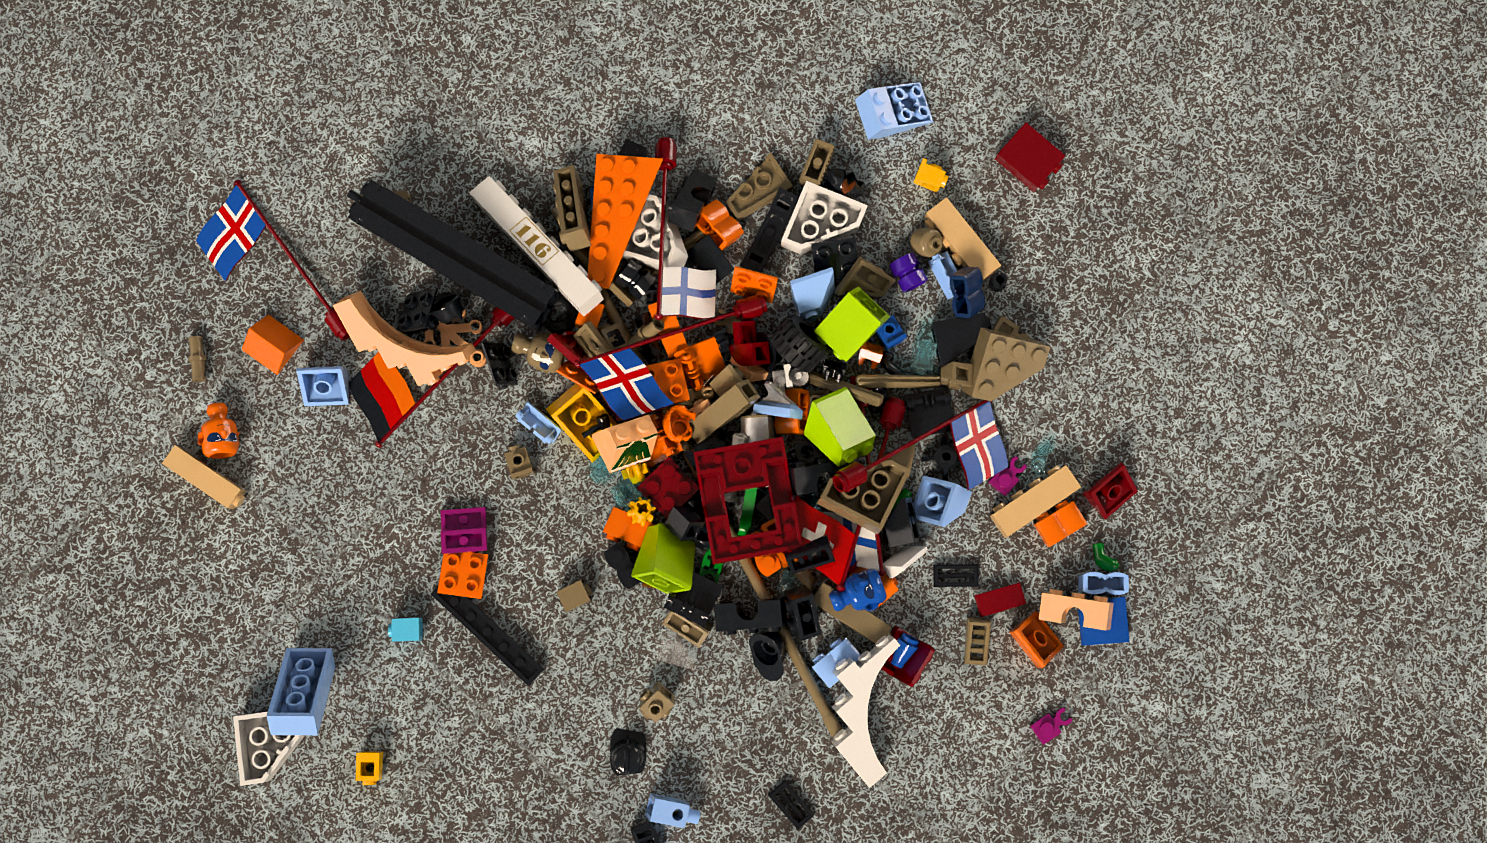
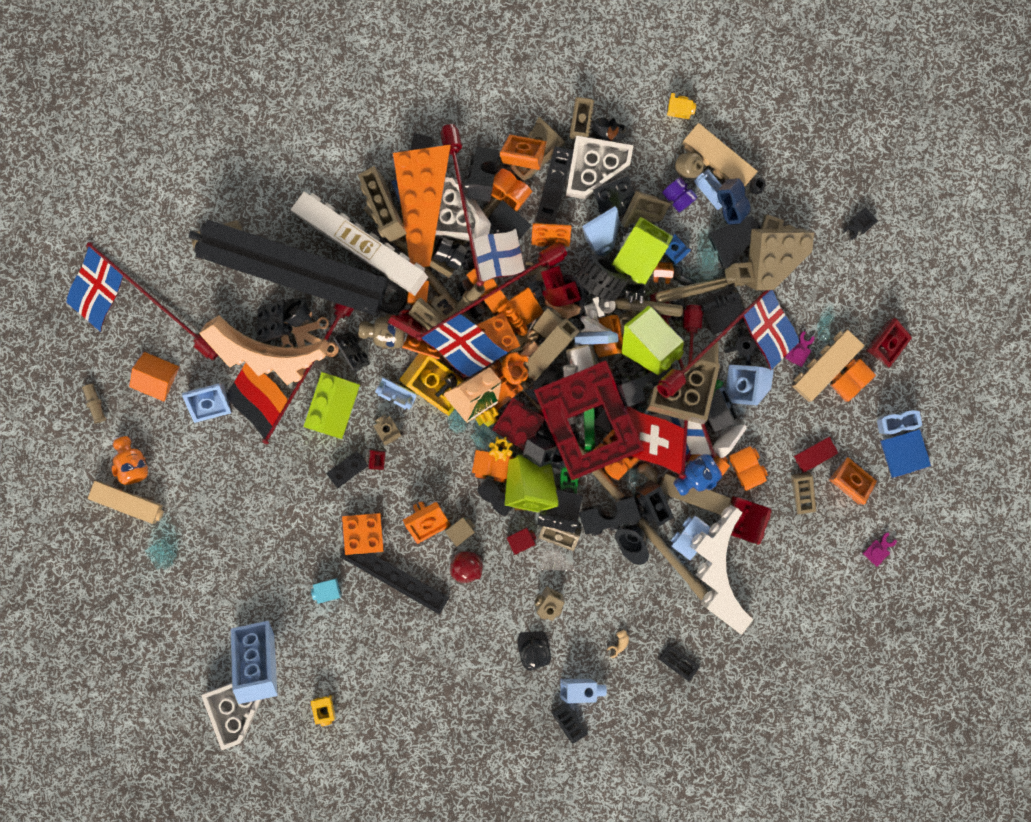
camera: 15 degrees left, 5 degrees up
(229, 546) = (161, 555): none -> clear light blue brick
(462, 420) = (331, 405): none -> lime slope
(463, 496) = (347, 469): none -> black hinge
(463, 530) = (355, 498): magenta slope -> none
(499, 493) = (376, 460): none -> dark red slope
(538, 575) = (426, 521): none -> orange tile
(572, 638) = (466, 567): none -> dark red hair
(642, 622) = (521, 540): none -> dark red brick
(731, 767) = (622, 644): none -> tan arm
(743, 187) = (523, 152): none -> orange slope
(814, 546) = (662, 453): black slope -> none
(893, 109) = (636, 55): light blue slope -> none
(907, 647) = (748, 512): blue cone -> none
(918, 597) = (747, 467): none -> orange brick
(974, 575) = (758, 446): black tile -> none
(1030, 158) = (762, 72): dark red brick -> none
(1096, 612) = (899, 448): light nougat arch -> none
(1102, 560) = (894, 402): green arm -> none
(1107, 348) = (861, 222): none -> black plate

